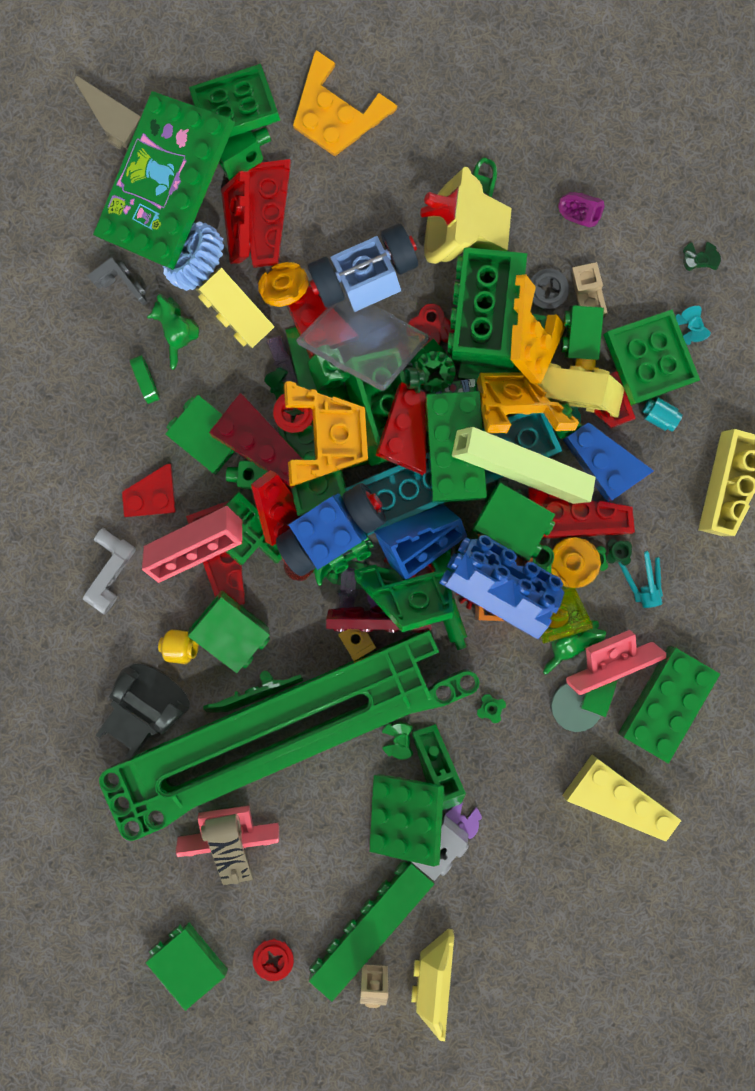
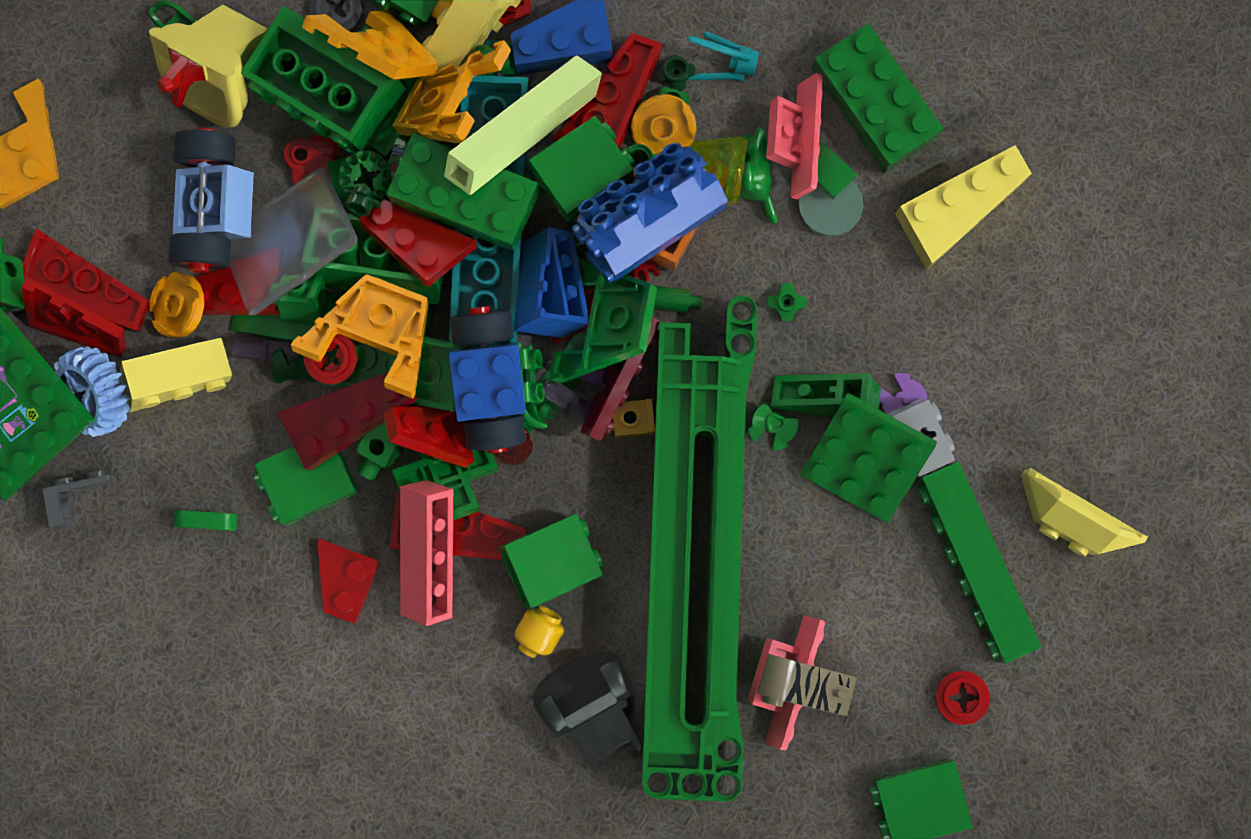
camera: 60 degrees left, 5 degrees down
(122, 551) = (431, 697): light grey beam -> none
(176, 328) = (164, 453): green animal -> none
(252, 694) = (637, 571): green piece -> none
(374, 986) = (1048, 589): tan slope -> none

